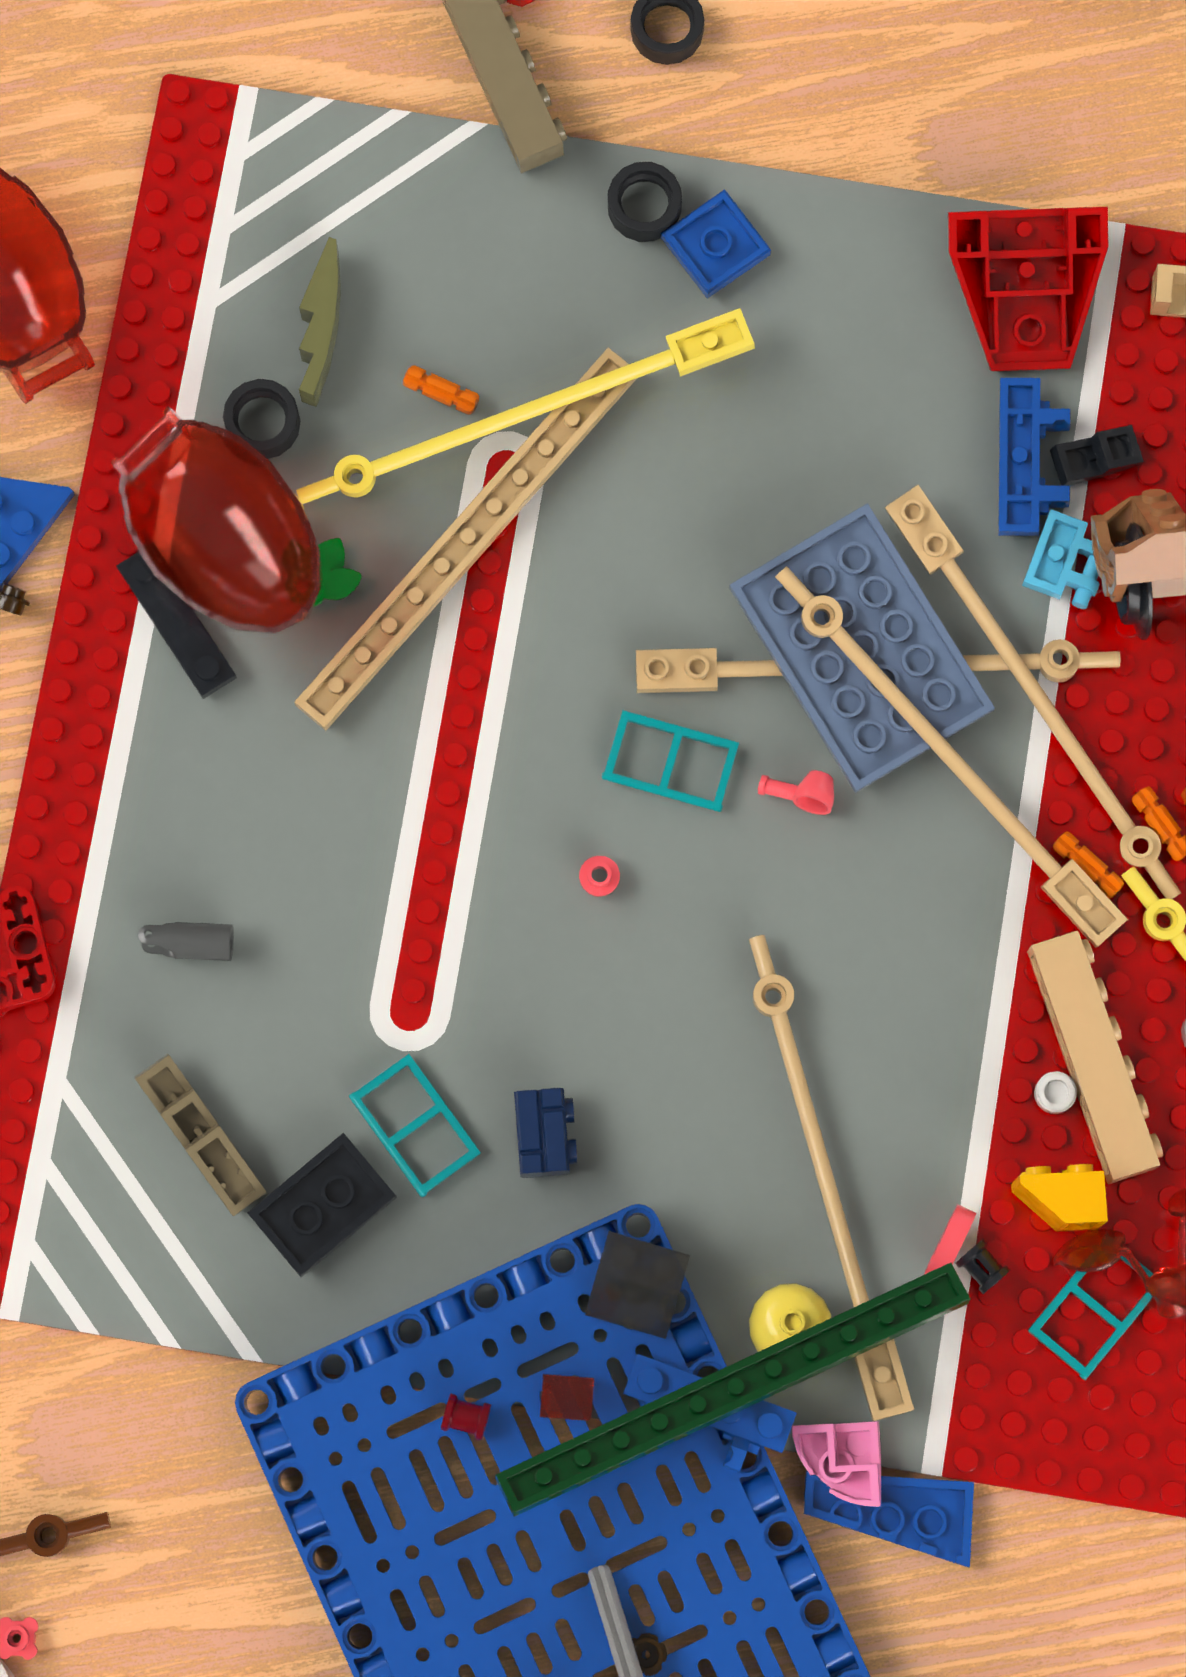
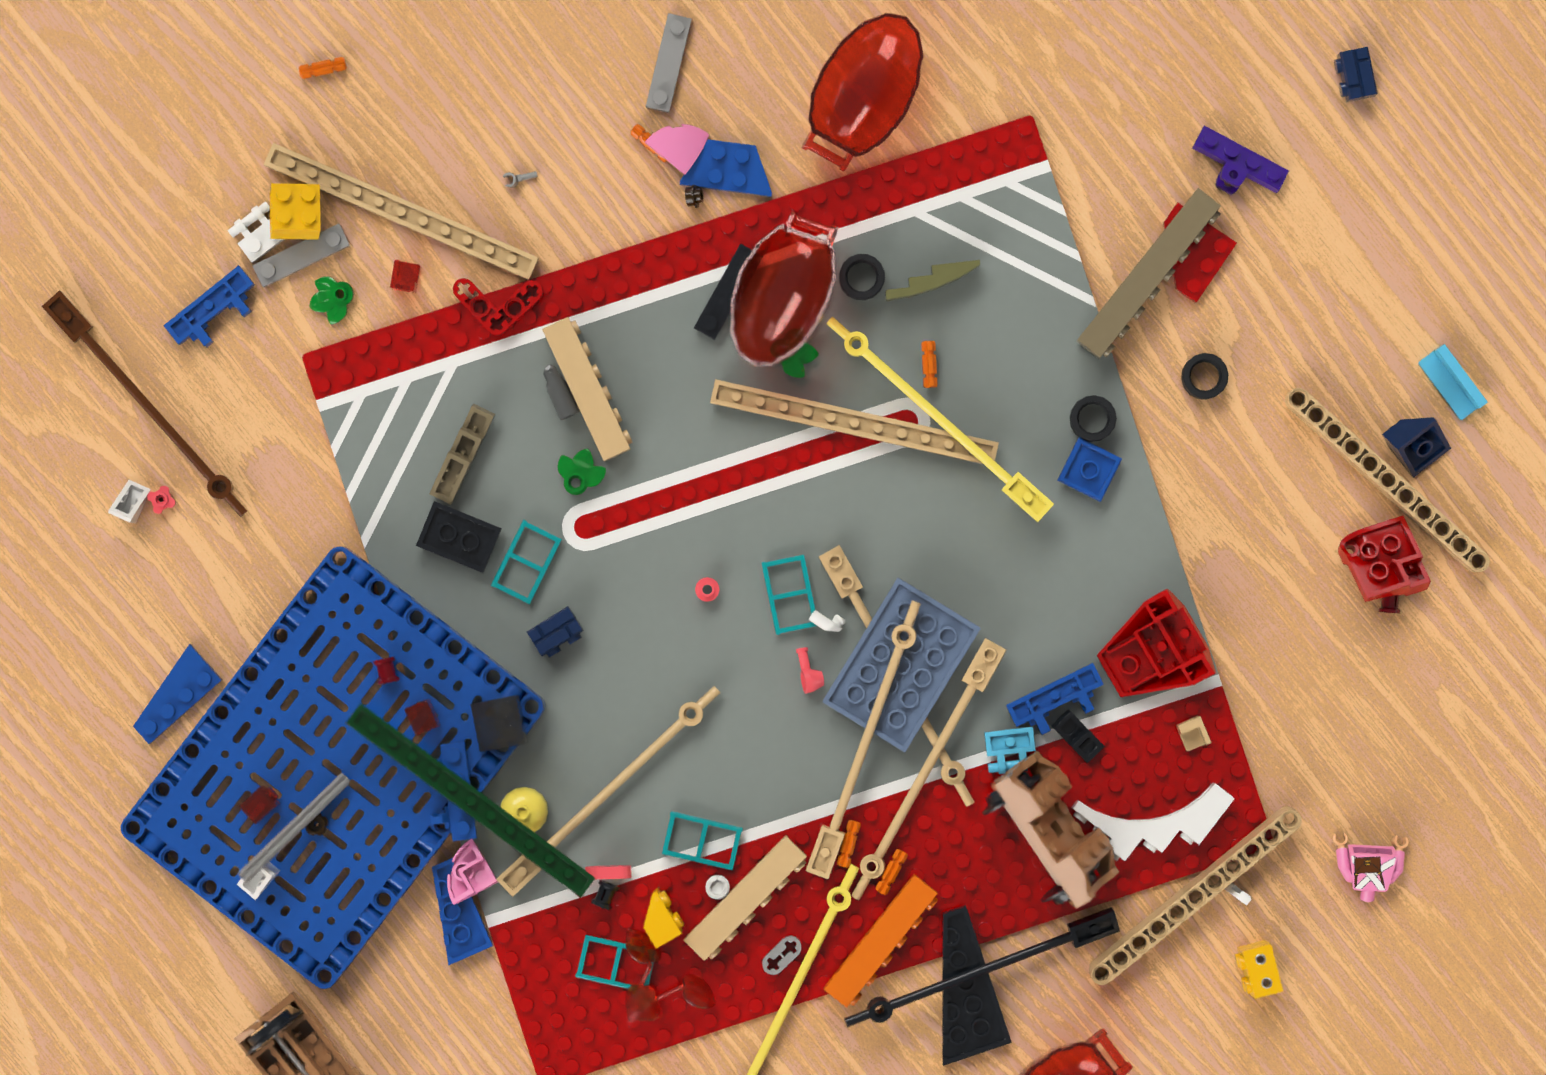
camera: 60 degrees right, 10 degrees up
(205, 896) = (586, 388): none -> tan brick
(320, 969) = (581, 468): none -> green plate
(741, 729) = (825, 623): none -> white arm
(949, 1060) = (697, 858): none -> teal window

